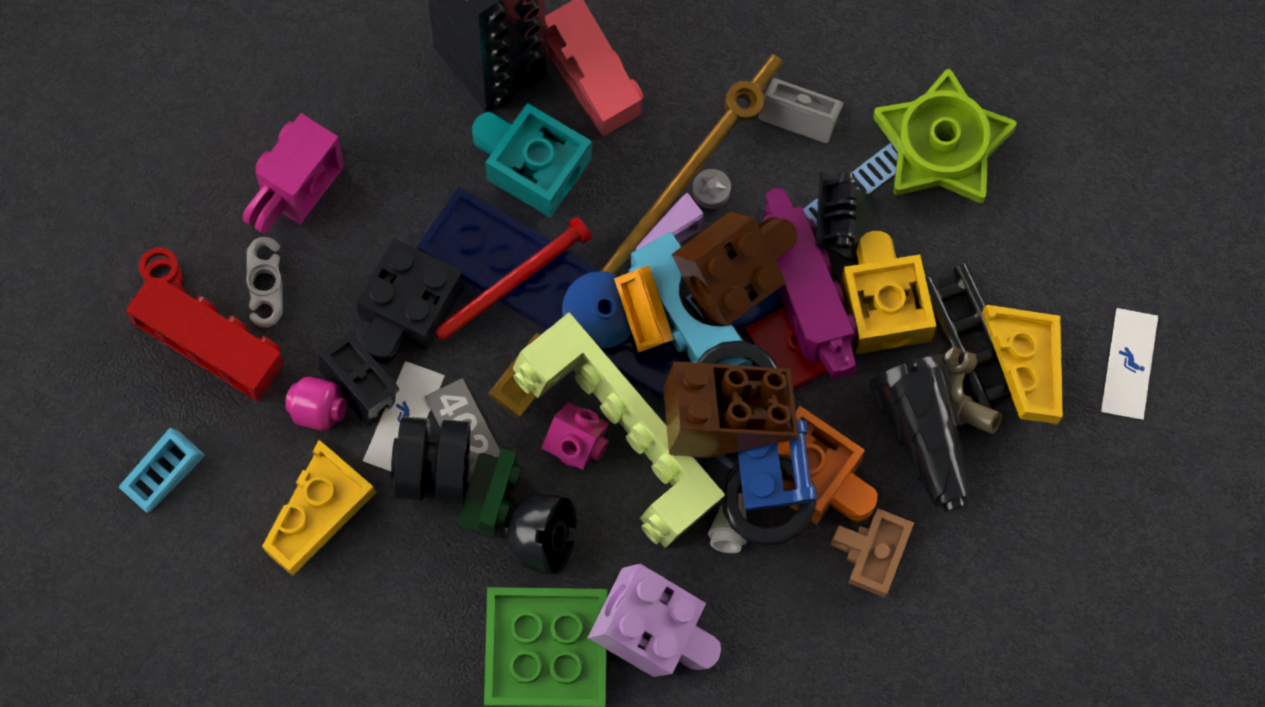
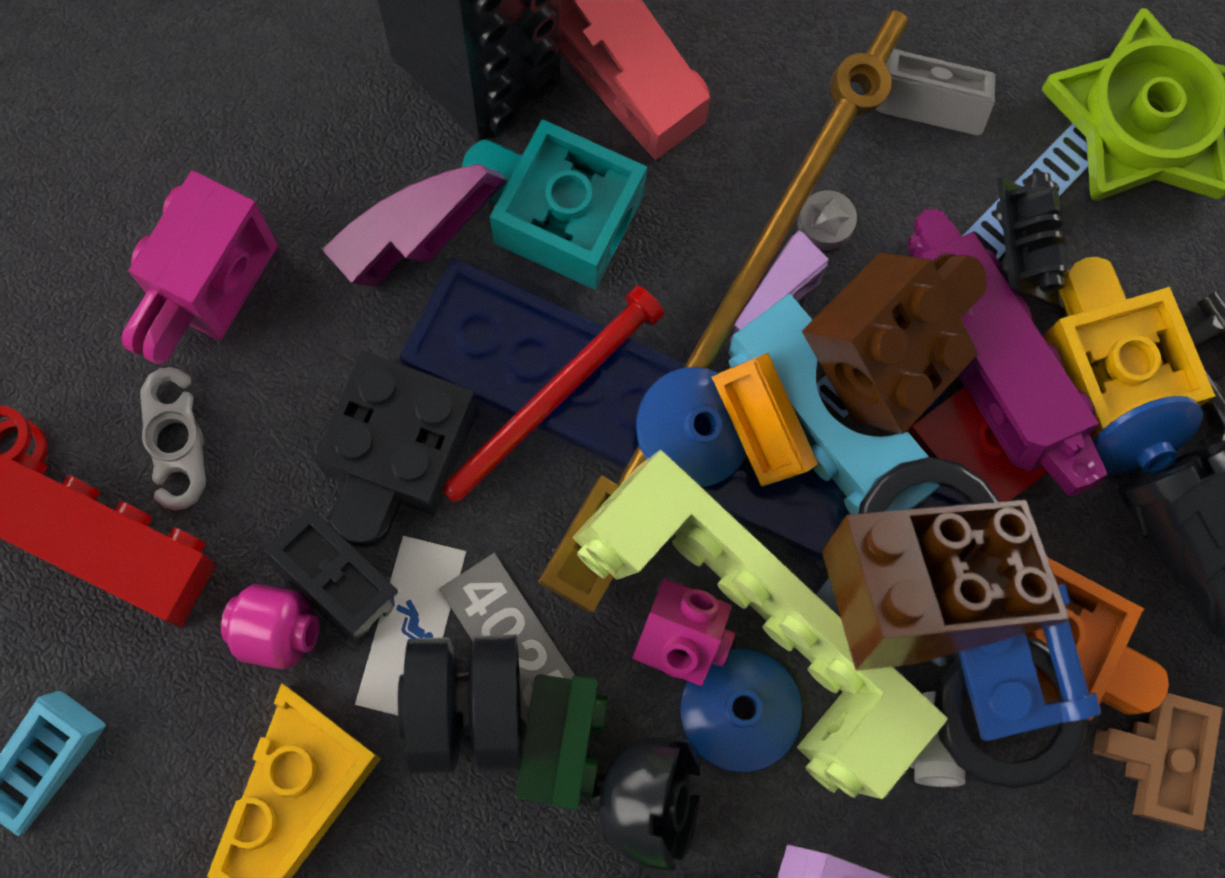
camera: 10 degrees left, 5 degrees up
(435, 161) = (412, 223): none -> magenta slope
(612, 510) = (734, 742): none -> blue dish
(890, 347) = (1148, 435): none -> blue dish

